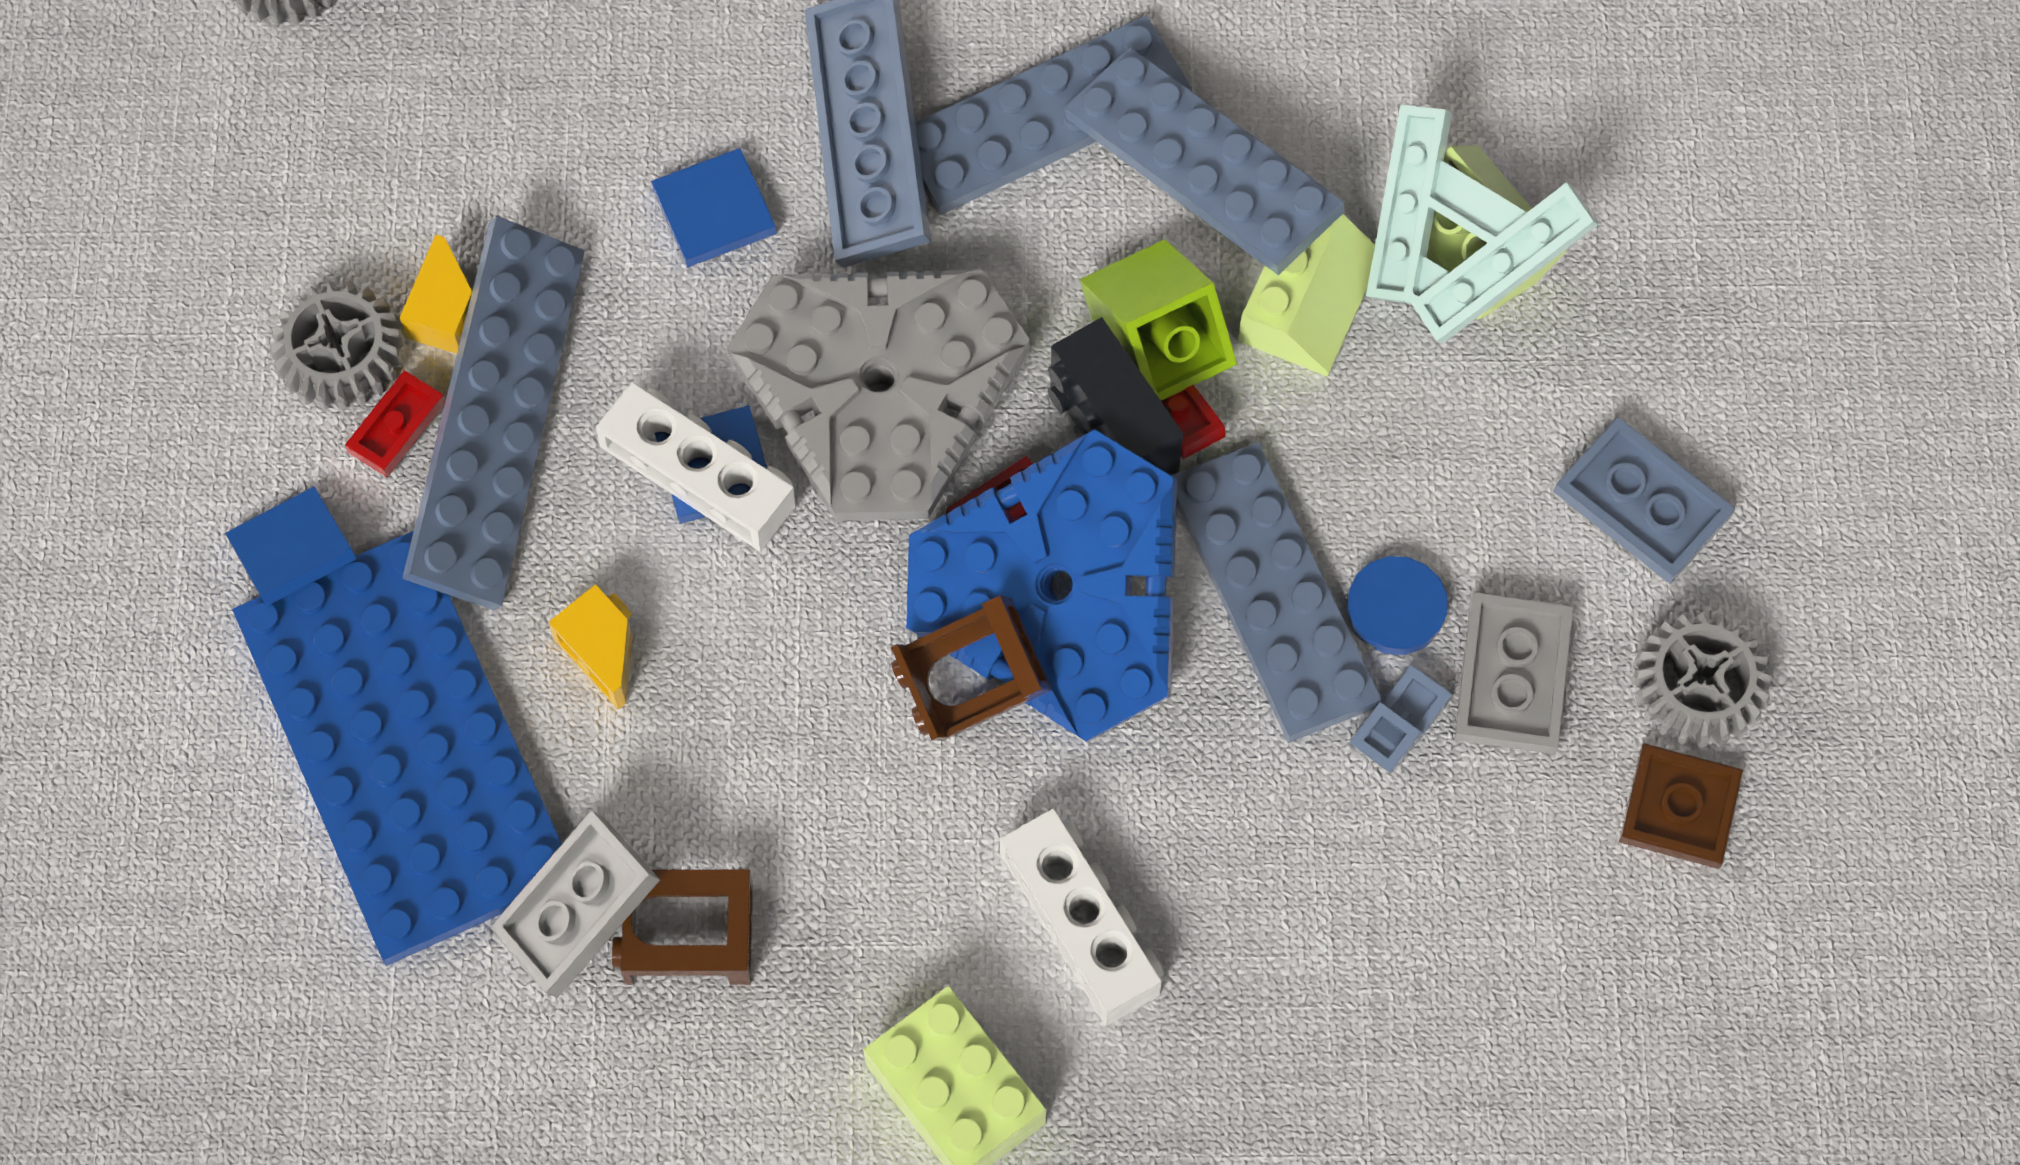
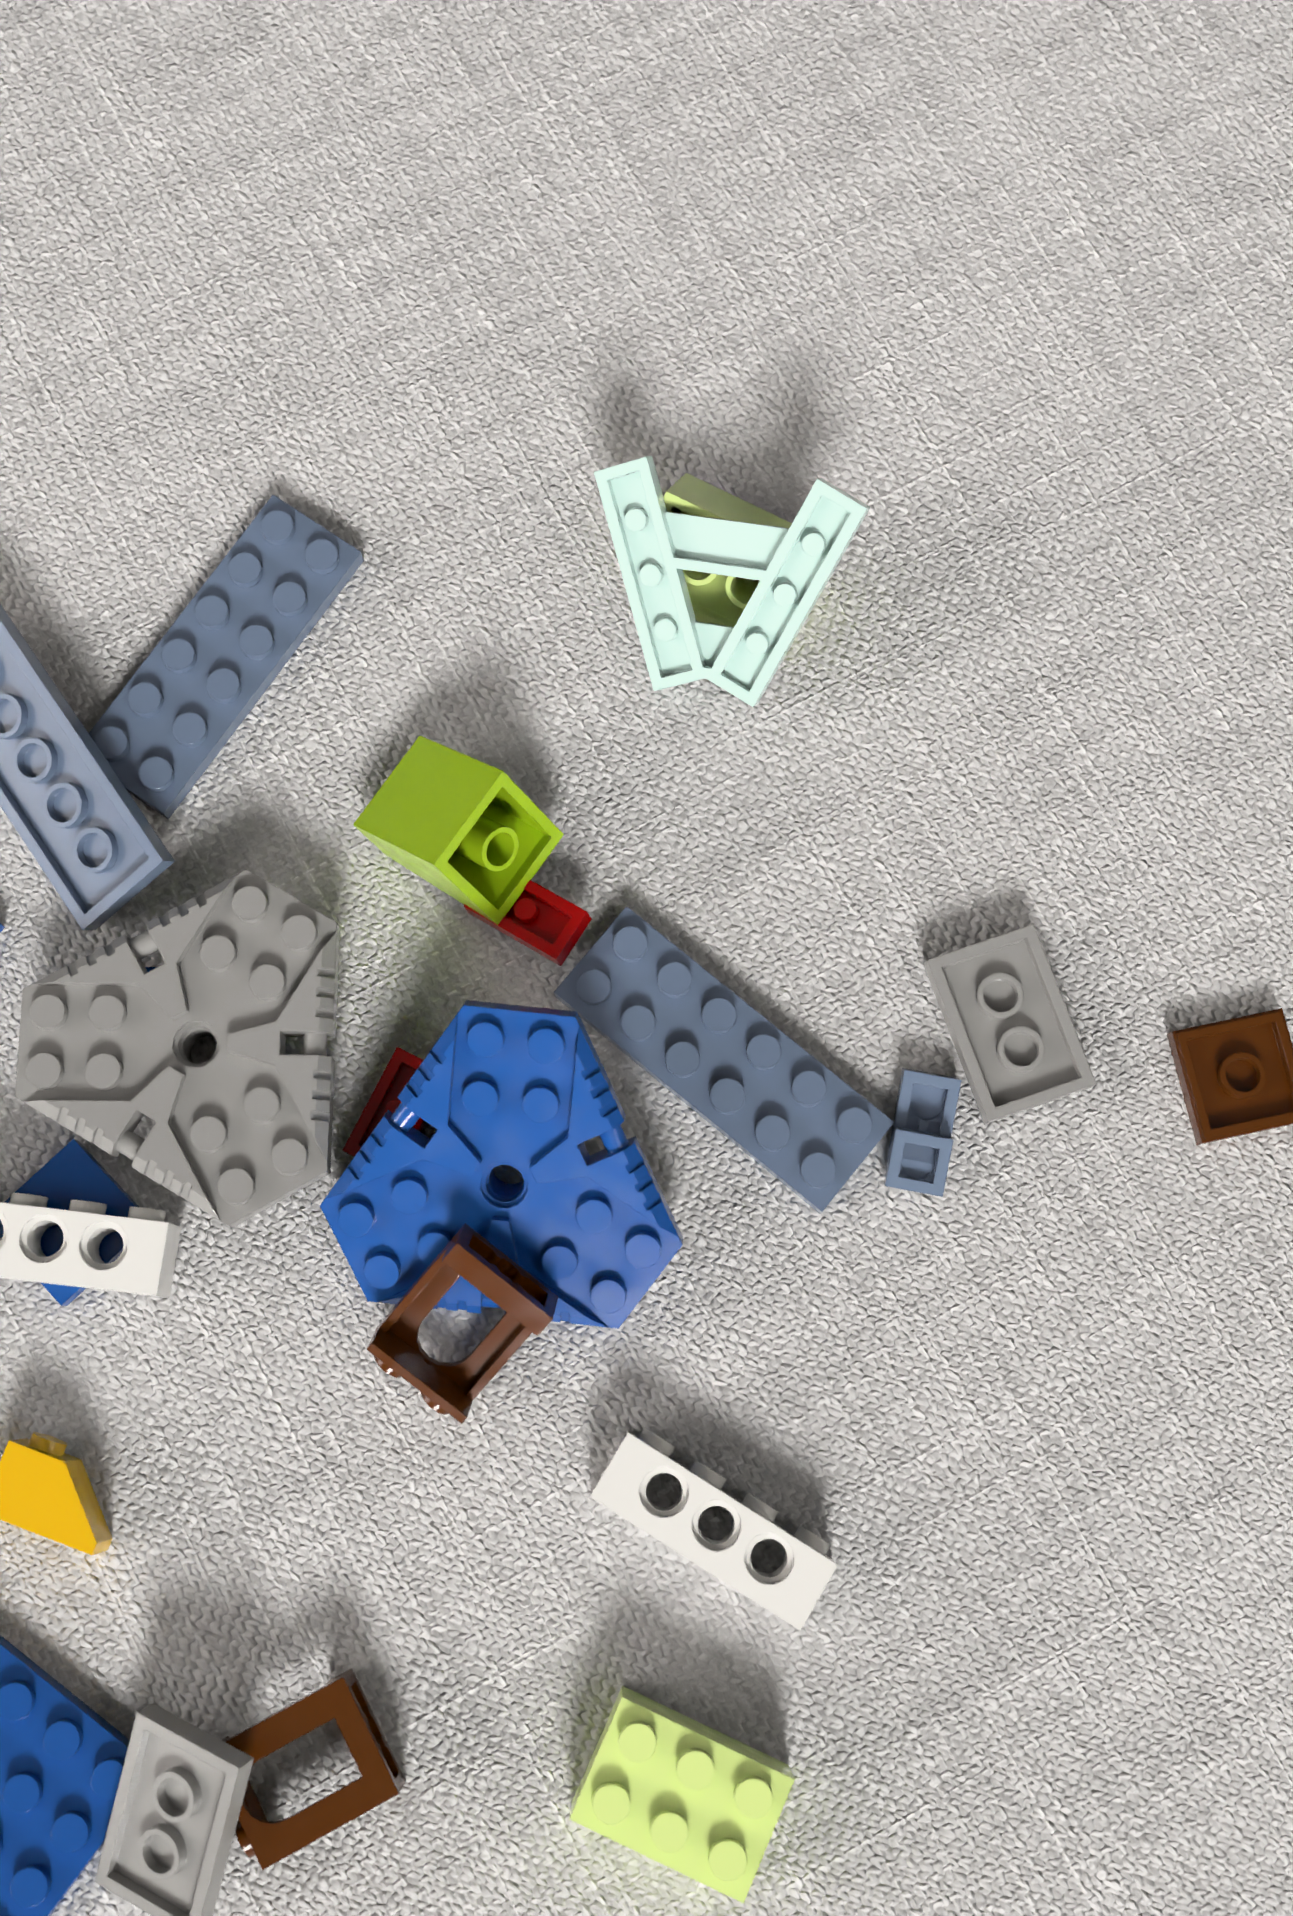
camera: 30 degrees left, 10 degrees up
(1108, 393) = (459, 947): black brick -> none
(1204, 160) = (418, 631): sand blue plate -> none
(1313, 301) = (594, 711): yellowish green slope -> none
(1397, 605) = (855, 1009): blue tile -> none
(1644, 500) = (1041, 771): sand blue plate -> none
(1683, 646) = (1240, 951): light grey gear -> none

